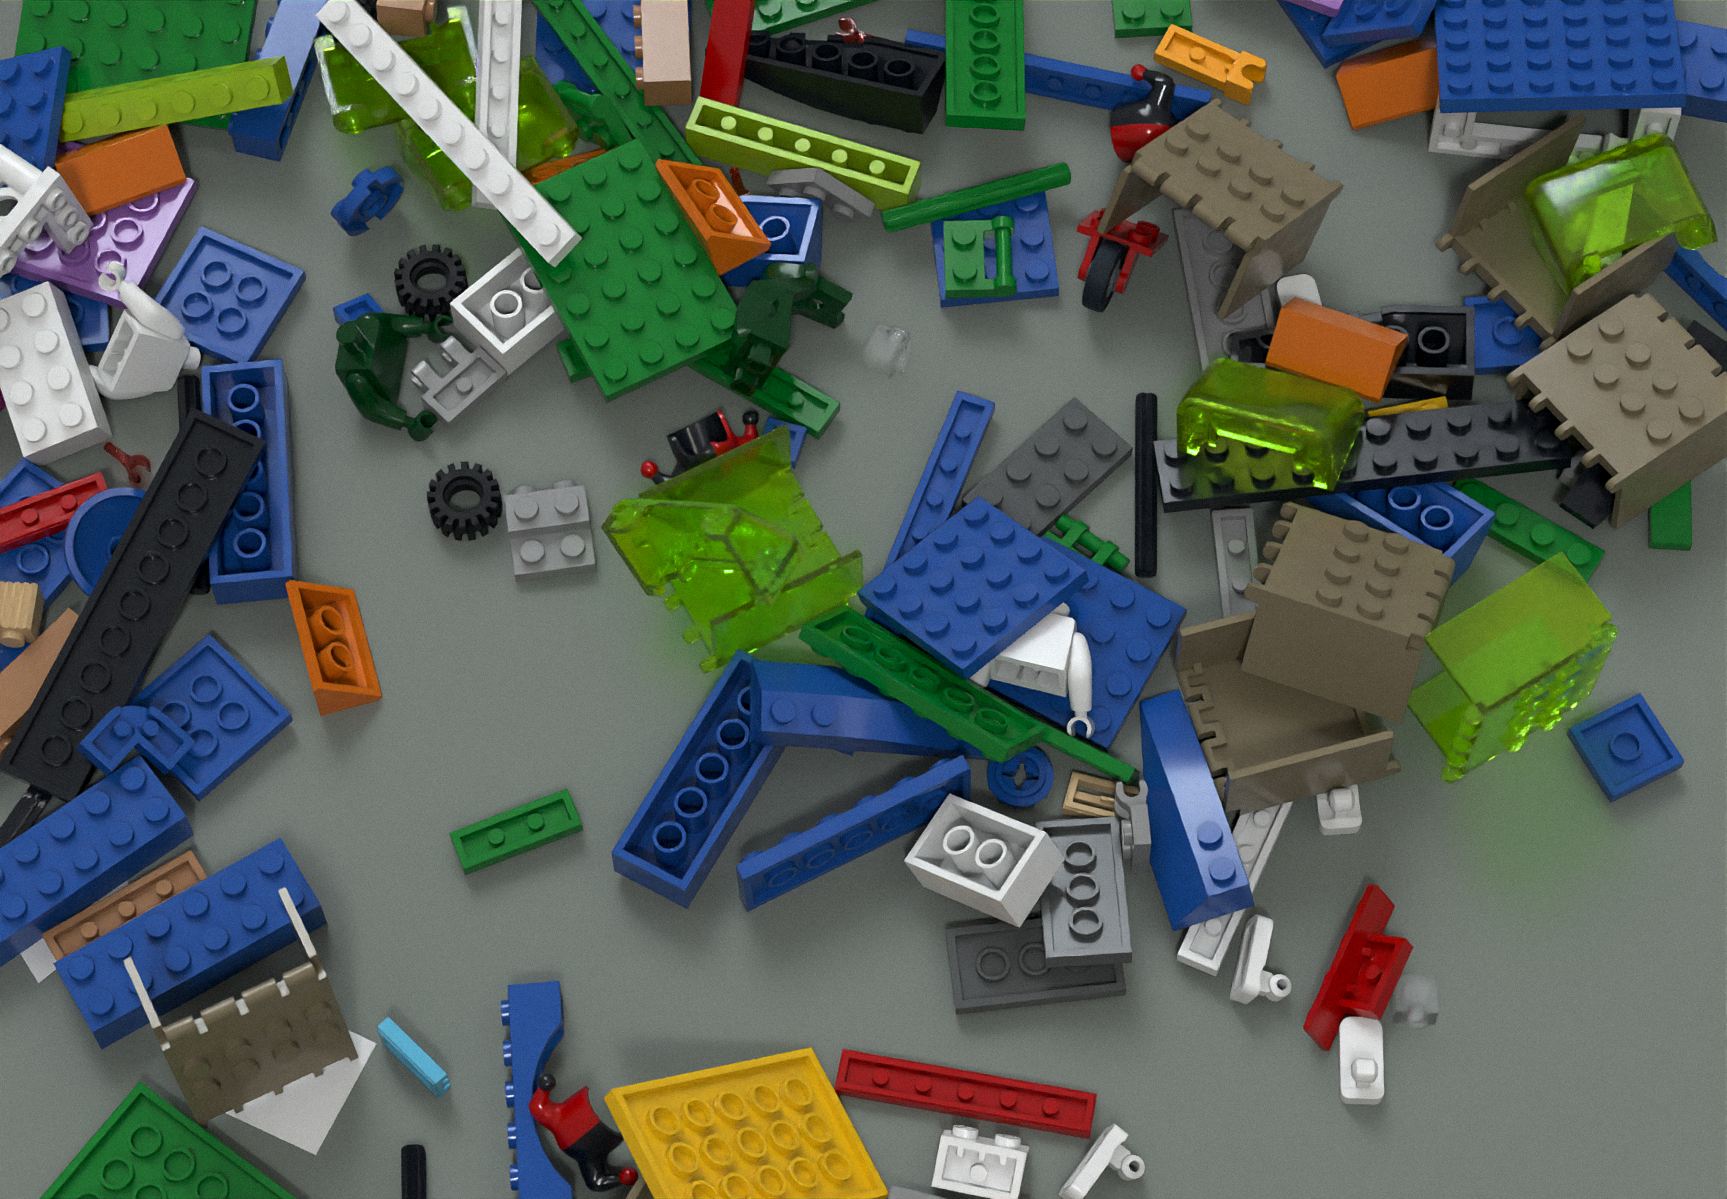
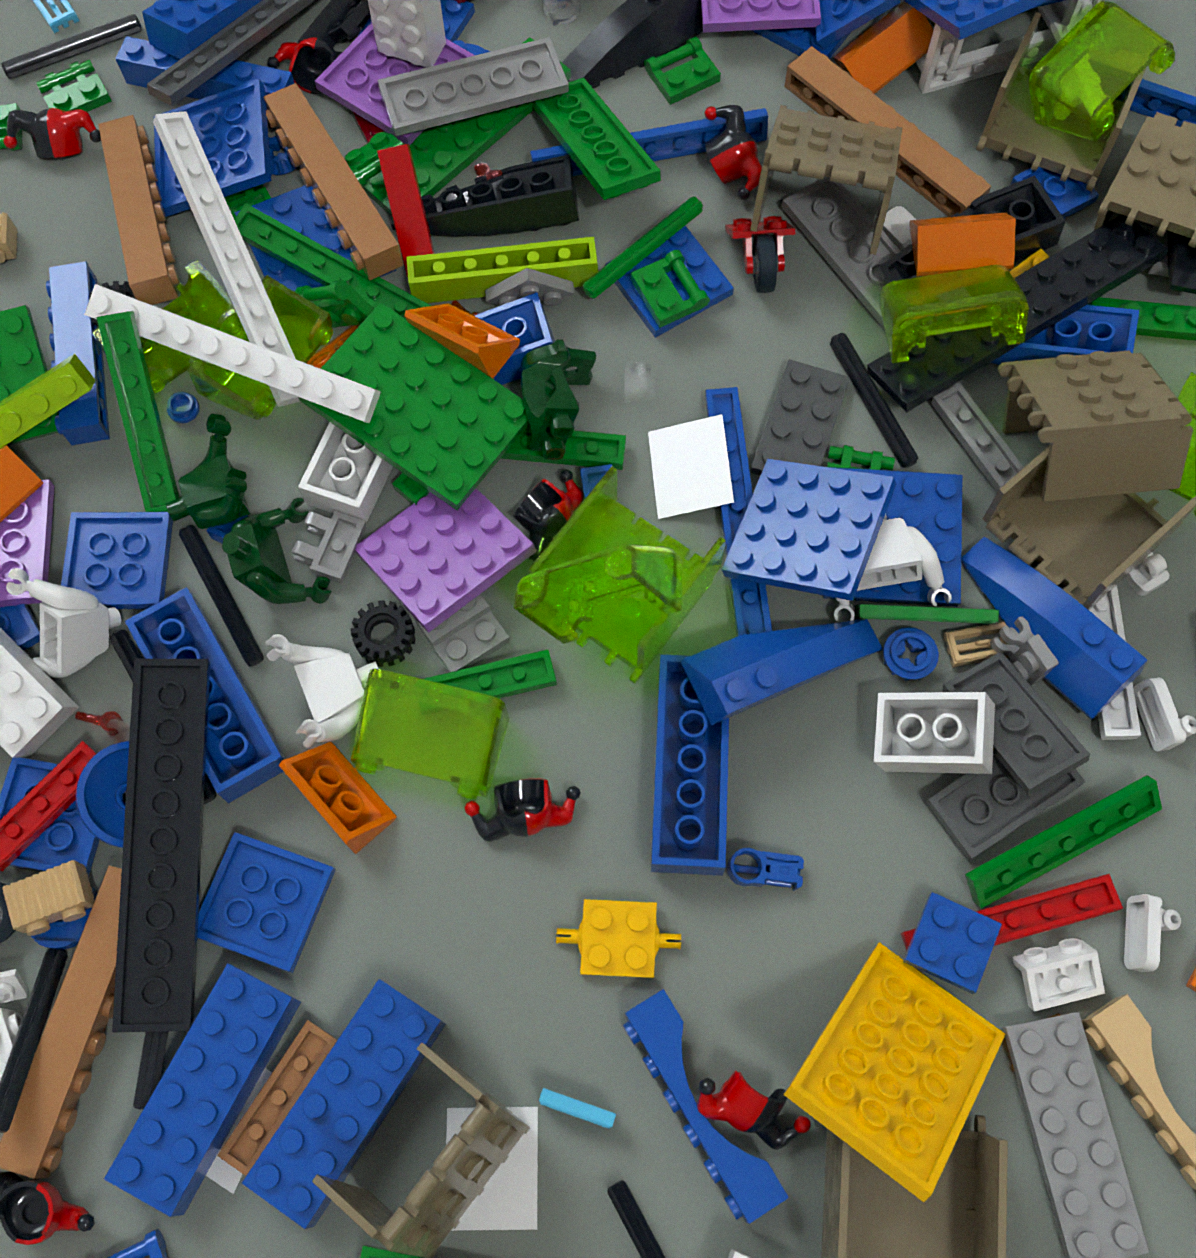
camera: 25 degrees left, 5 degrees up
(137, 728) = (215, 942): blue plate -> none
(314, 385) = (221, 596): none -> black axle
(321, 150) = (138, 410): none -> green plate
(362, 267) = (214, 488): none -> dark green torso
(372, 196) = (191, 437): blue plate -> none
(373, 157) = (182, 407): none -> blue plate
(381, 530) = (330, 687): none -> white torso
(429, 263) = (270, 462): black tyre -> none
(460, 623) = (430, 731): none -> clear neon green windscreen
(514, 747) = (523, 809): none -> black piece
(516, 831) = (559, 877): green plate -> none
(544, 919) = (618, 938): none -> yellow plate
(545, 600) = (505, 676): none -> green plate
(568, 446) = (443, 556): none -> medium lavender plate
(743, 926) = (772, 869): none -> blue piece
(851, 834) = (815, 764): blue plate -> none
(884, 1079) = (952, 943): none -> blue plate
(894, 468) = (690, 467): none -> white sticker
(922, 684) = (816, 618): green plate -> none
(1067, 1038) = (1064, 841): none -> green plate
(1211, 63) = (749, 92): light orange plate -> none
(1328, 141) = (921, 160): none -> medium nougat brick

